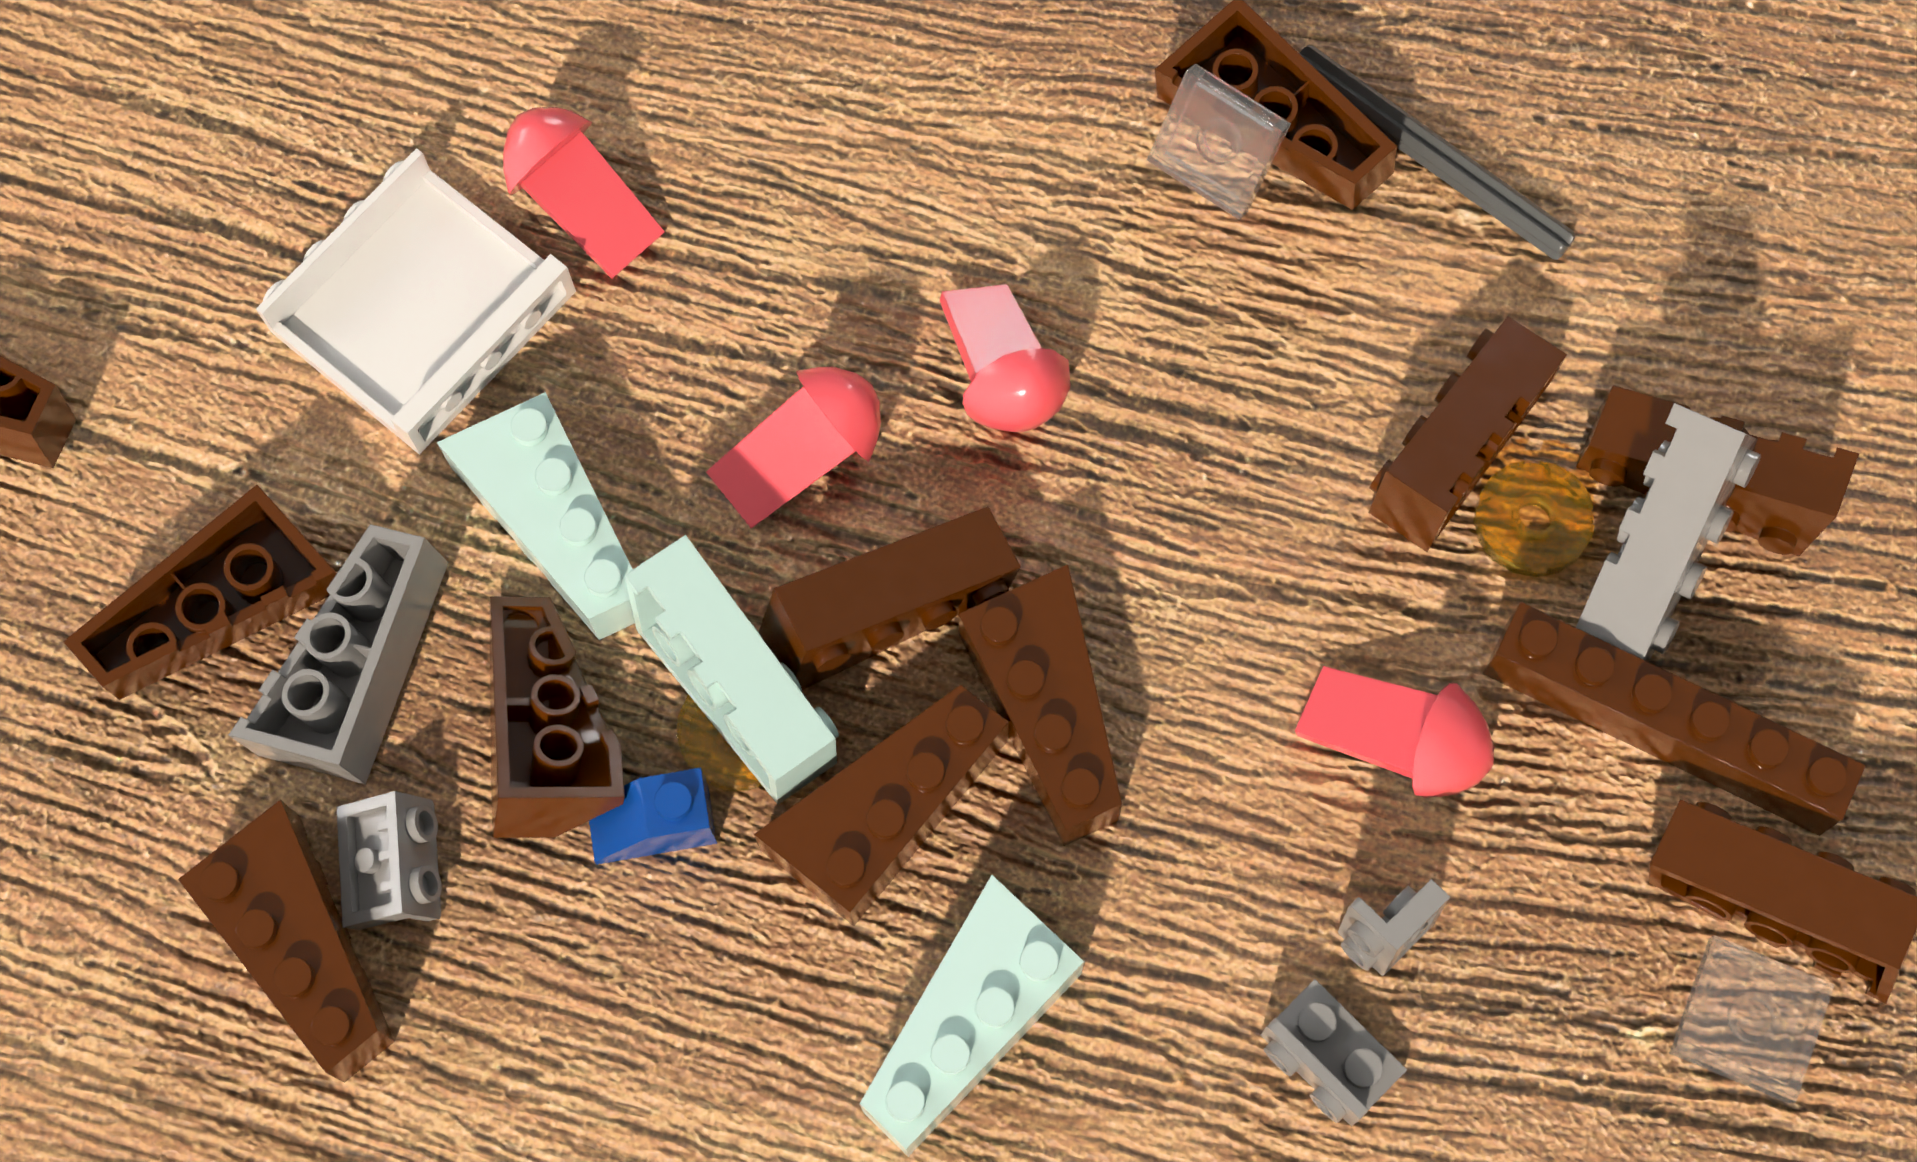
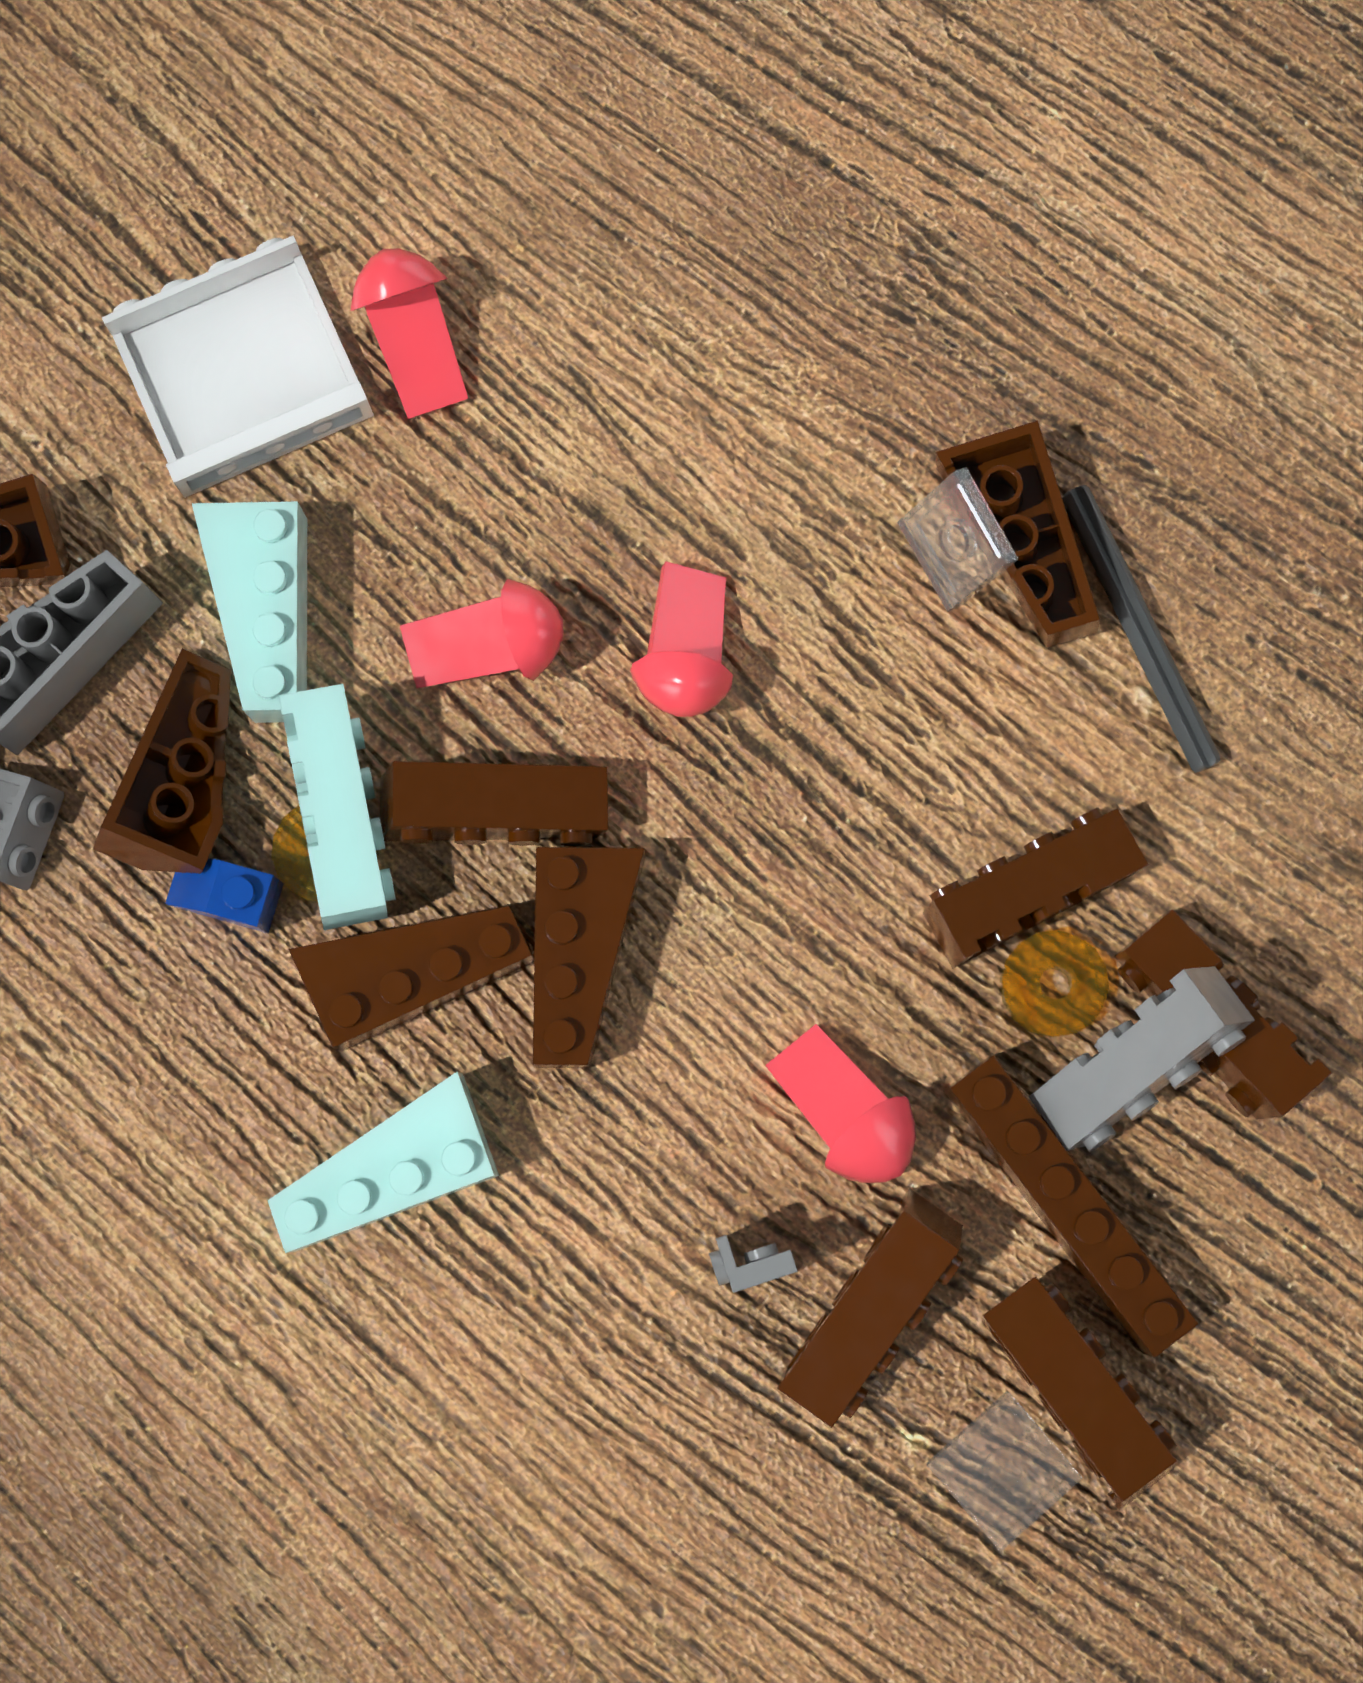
camera: 25 degrees right, 10 degrees up
(1331, 1054) = (657, 1335): light grey bracket -> none
(1539, 917) = (873, 1310): none -> reddish brown wedge

